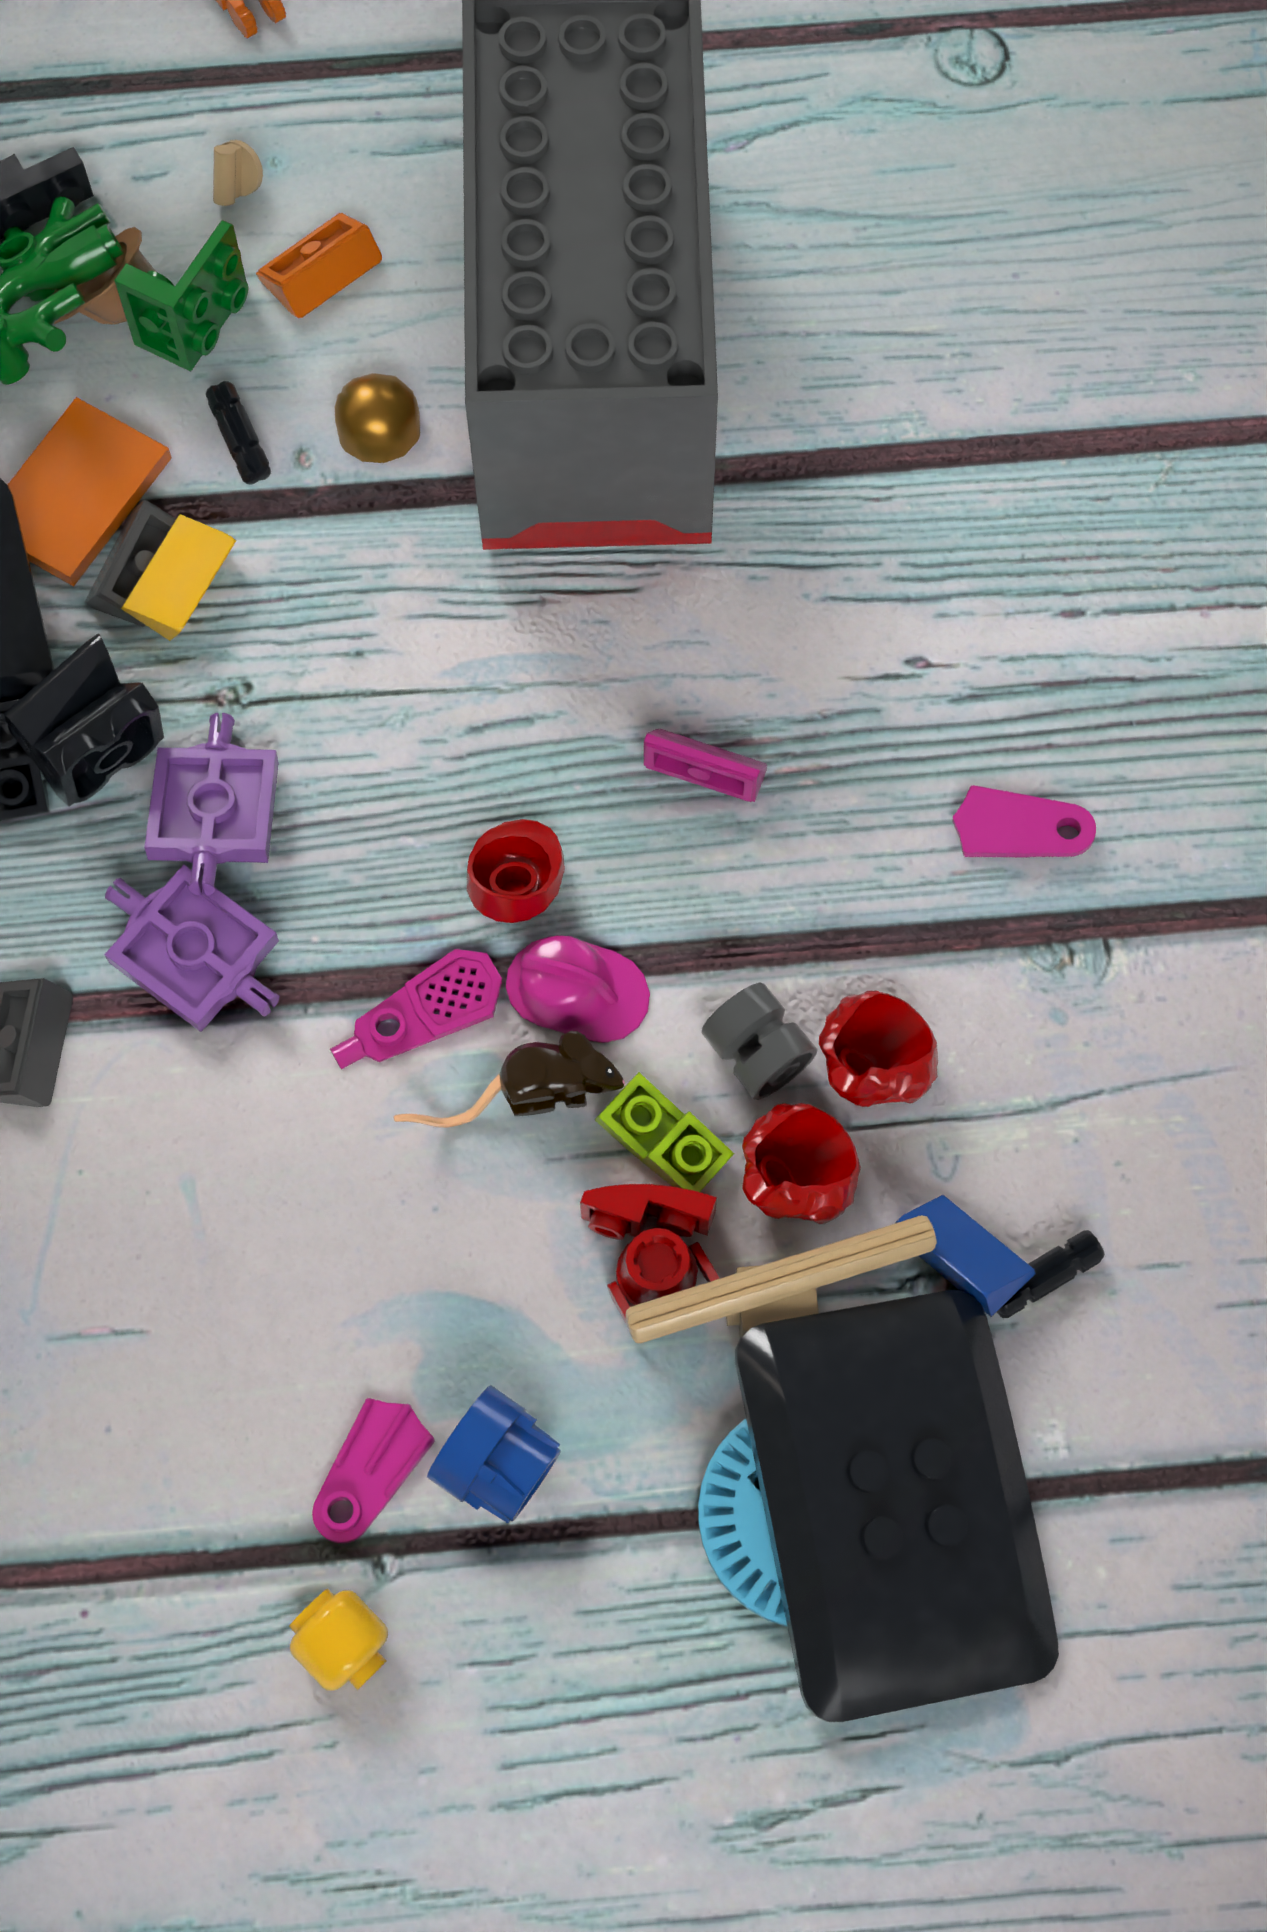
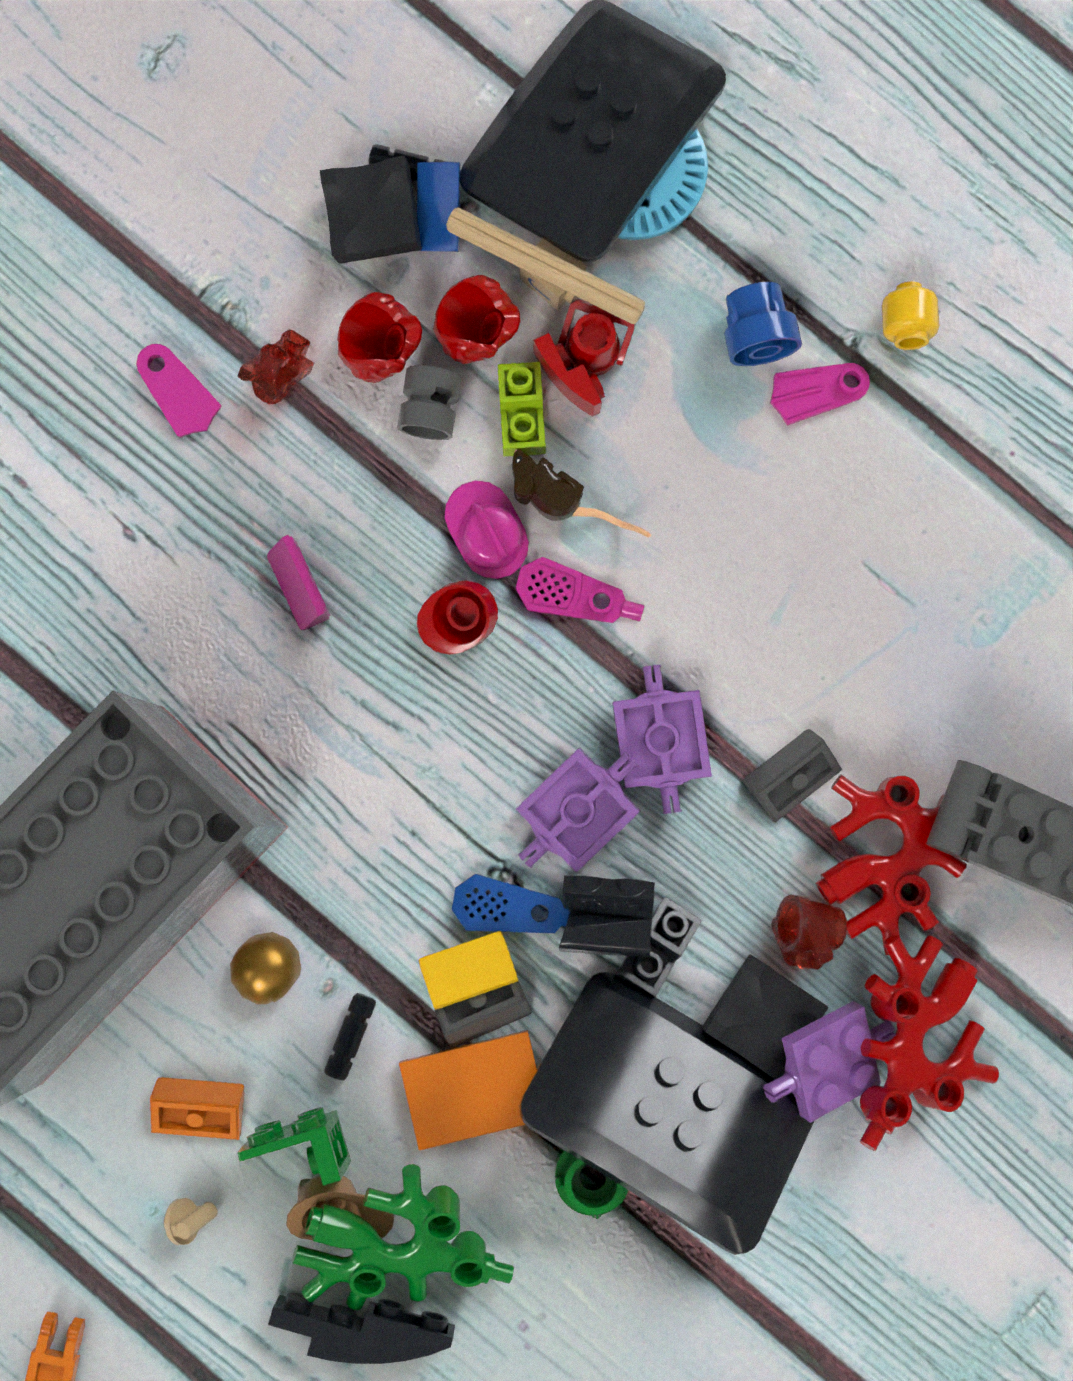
camera: 140 degrees left, 15 degrees up
(187, 673) = (517, 909): none -> blue piece
(943, 926) = (278, 367): none -> clear red hips
(1026, 1175) = (371, 210): none -> black brick

